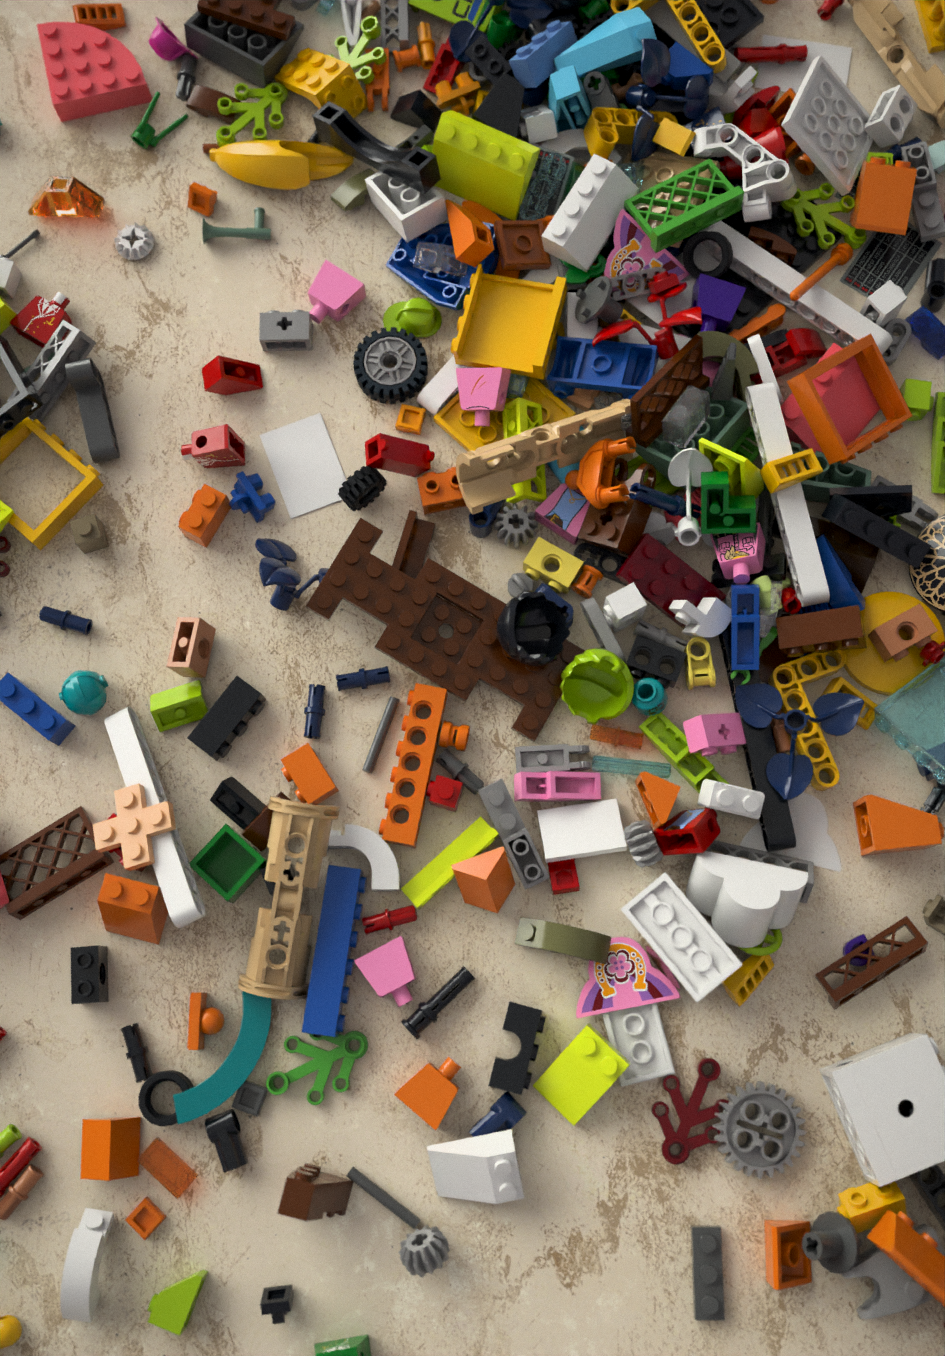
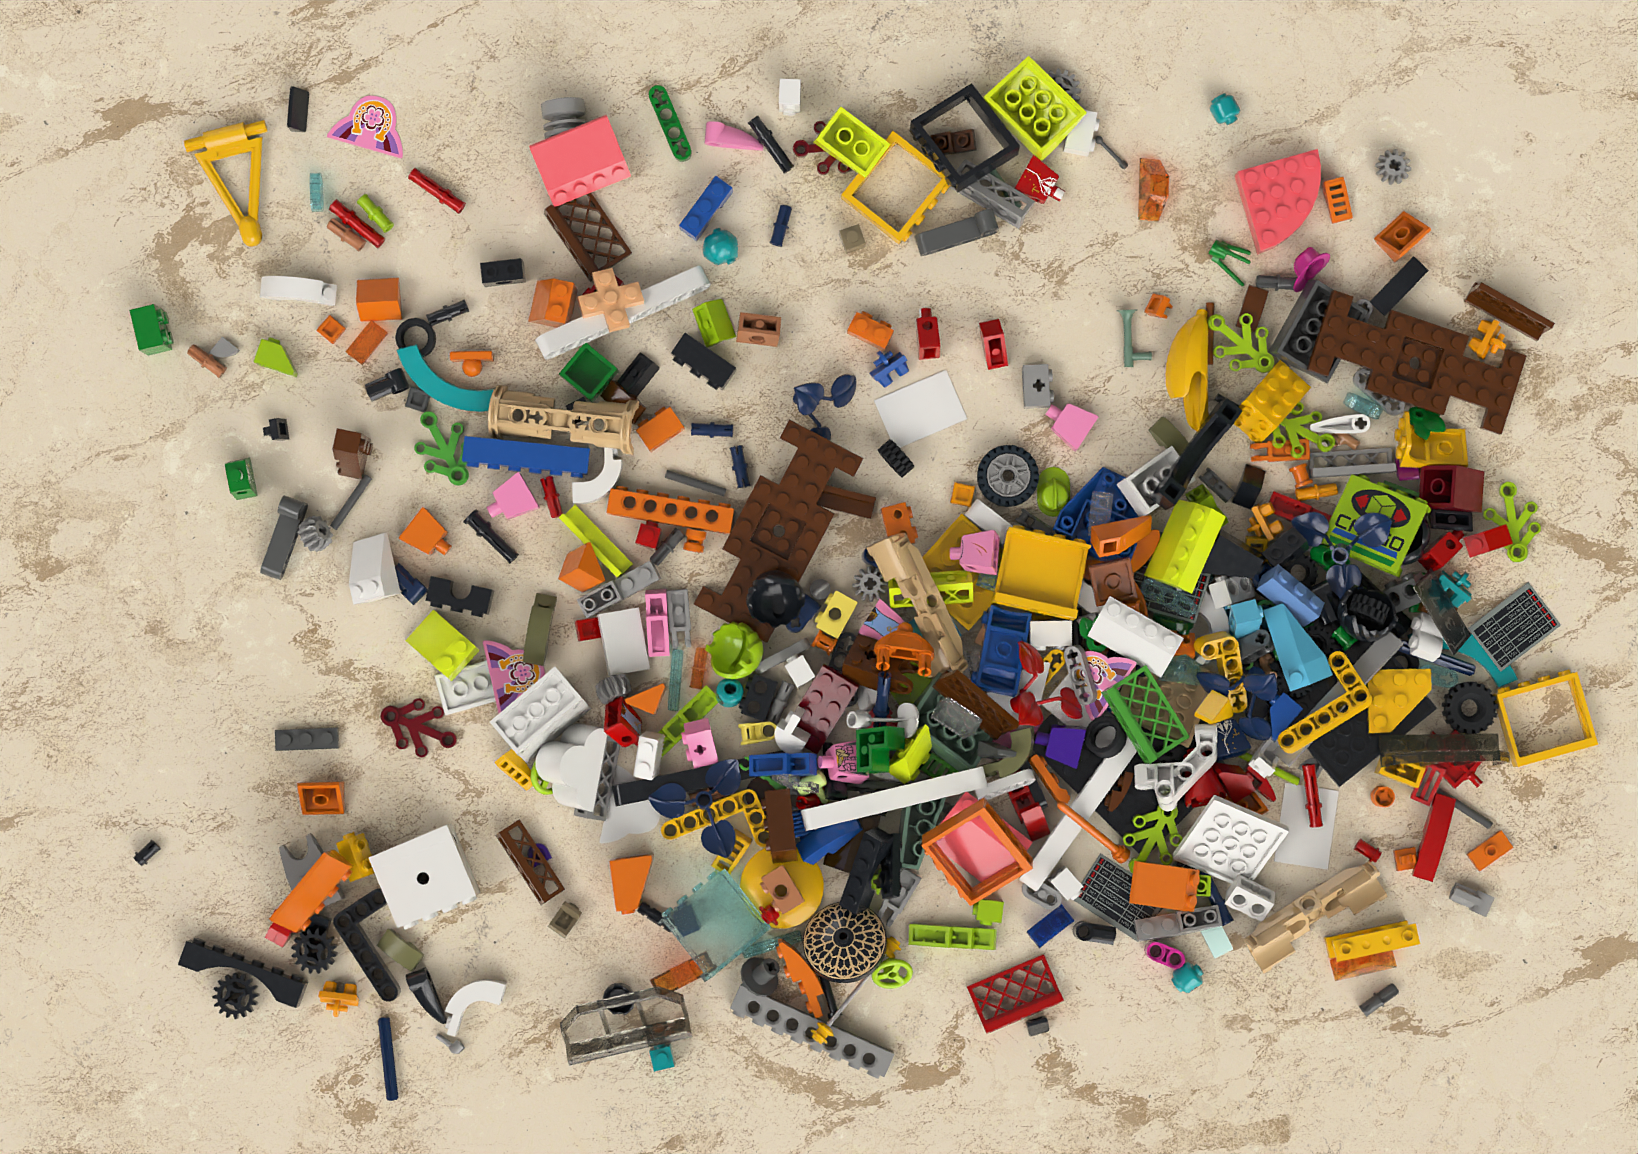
camera: 80 degrees right, 10 degrees up
(140, 247) = (1112, 257): white gear -> none
(398, 455) = (922, 486): red brick -> none
(427, 1297) = (284, 537): none -> dark grey beam
(447, 338) = (1037, 523): none -> dark grey bar
(596, 302) = (1056, 644): dark grey piece -> none
(663, 281) = (1077, 699): red plate -> none
(752, 1154) = (389, 771): light grey gear -> none
(776, 478) = (899, 784): yellow slope -> none
(832, 1243) = (330, 826): dark grey piece -> none

